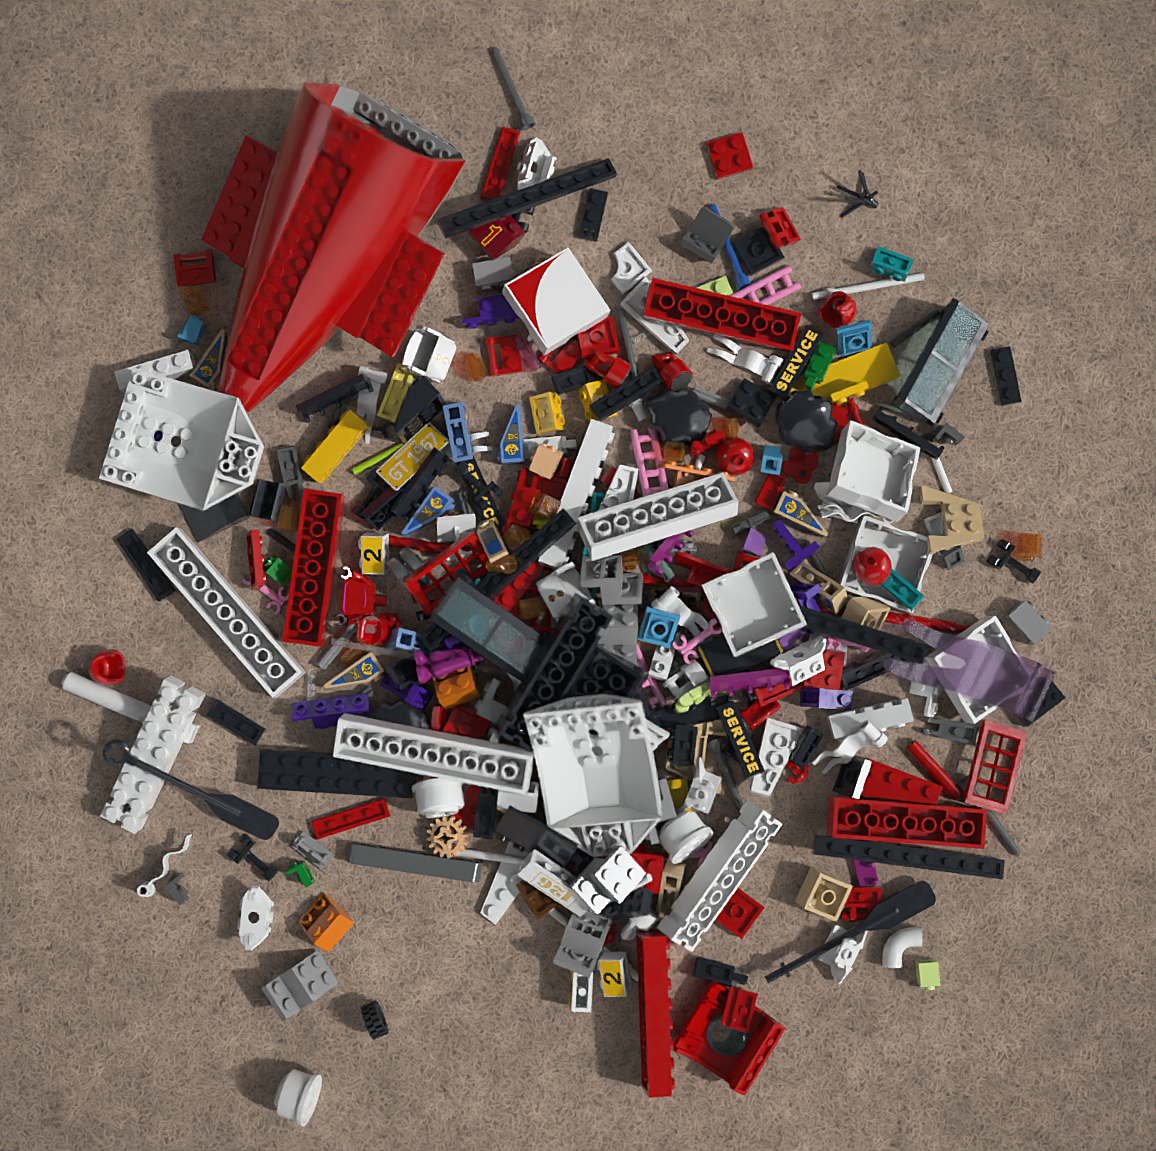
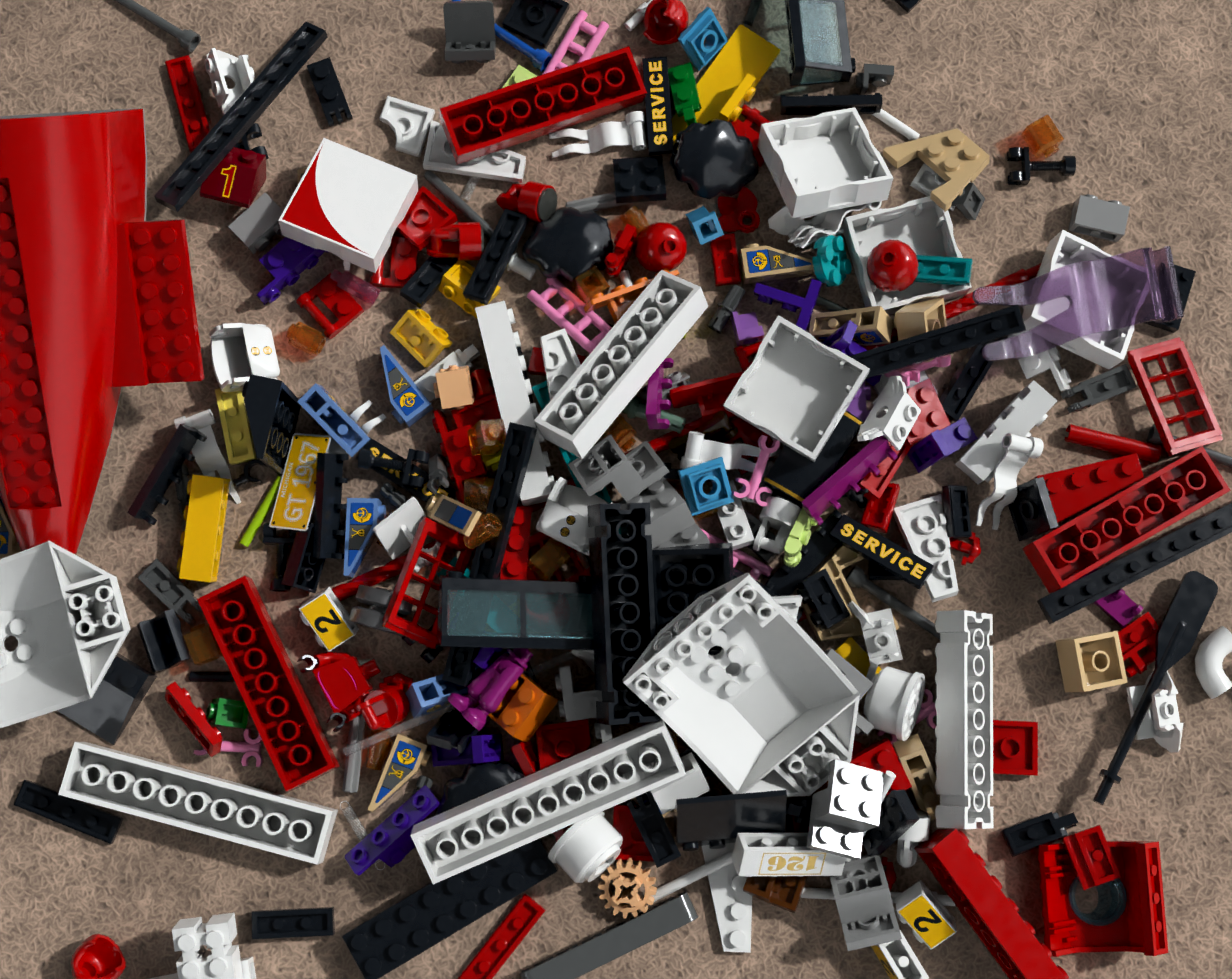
camera: 40 degrees left, 5 degrees down
(500, 507) = (437, 473): none -> dark grey bar
(836, 537) = (831, 260): none -> teal plate

